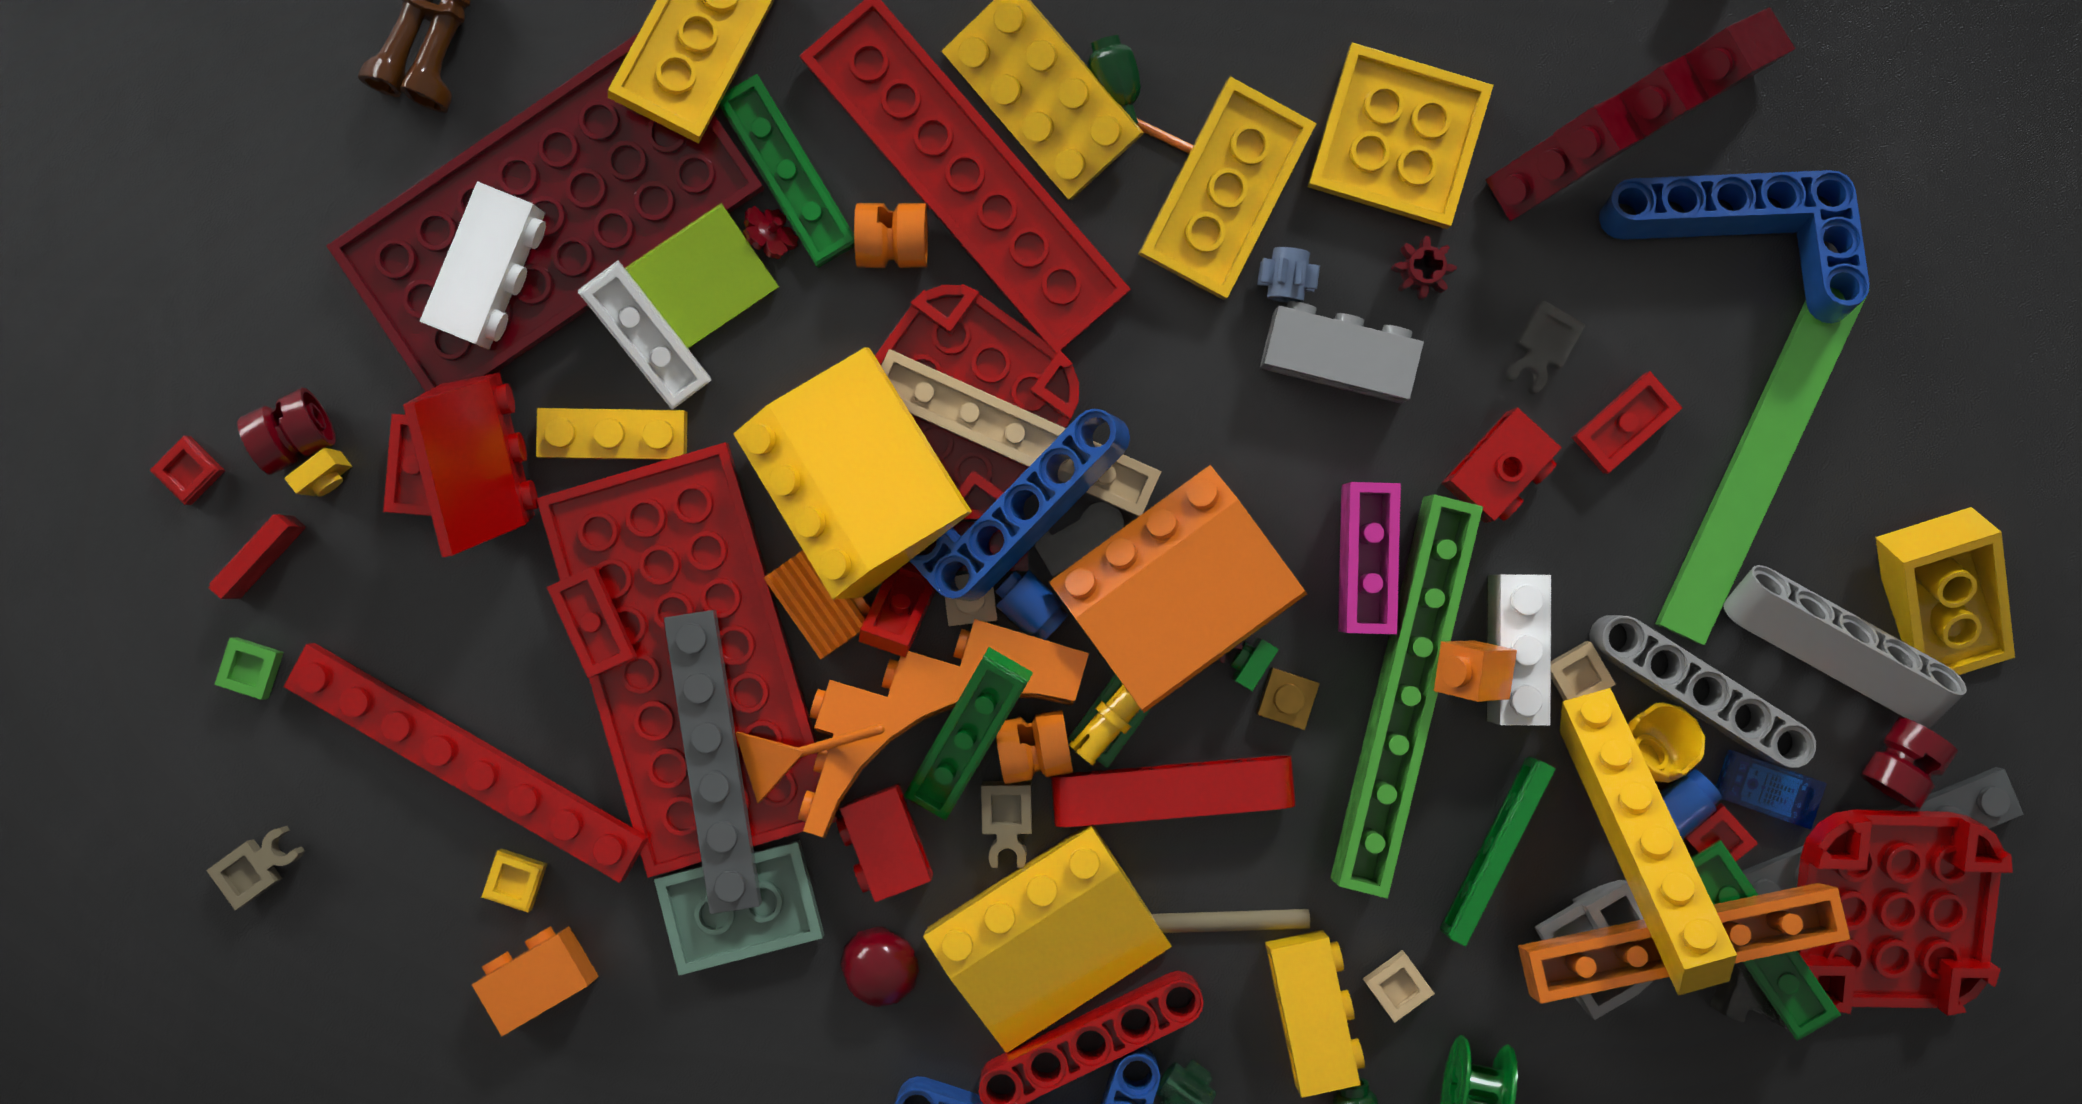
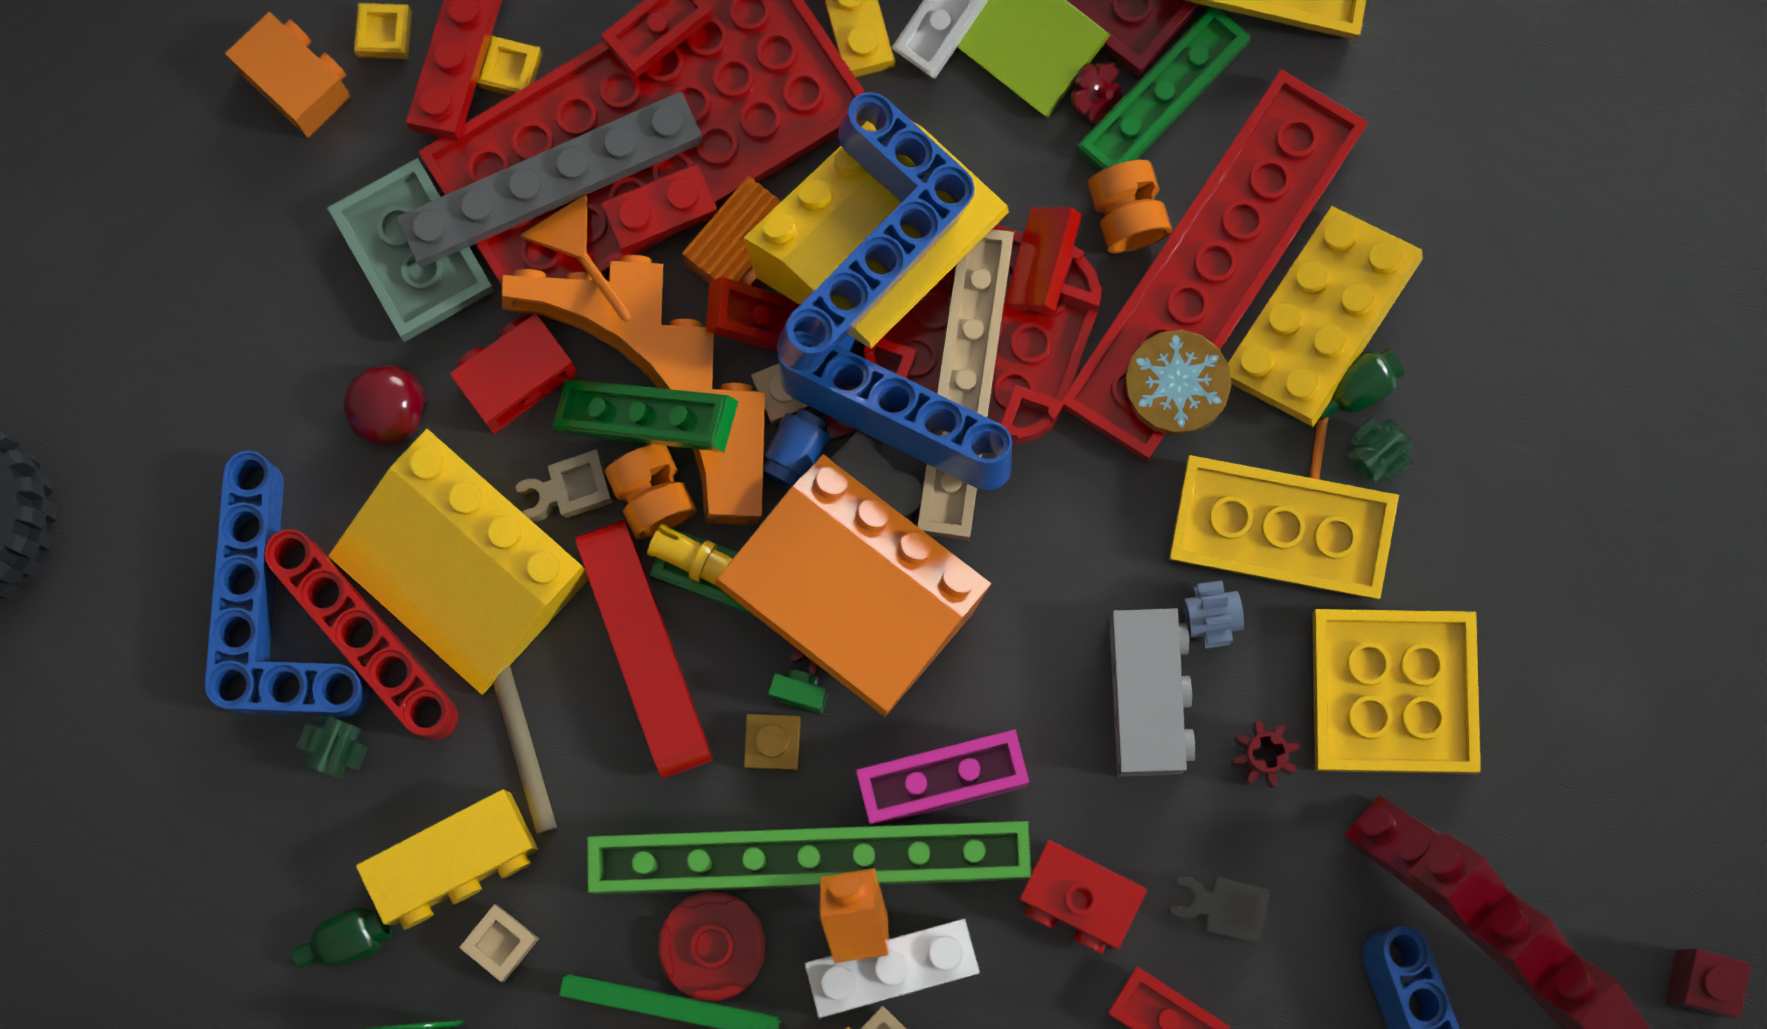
camera: 75 degrees right, 10 degrees down
(585, 770) = (509, 66): none -> yellow tile
(771, 667) = (660, 209): none -> red plate
(880, 468) = (887, 243): none -> blue beam
(920, 329) = (1043, 259): none -> red tile
(1071, 242) = (1177, 382): none -> pearl gold tile
(1183, 79) = (1381, 450): none -> clear green gear
(1454, 800) = (712, 946): none -> red tile

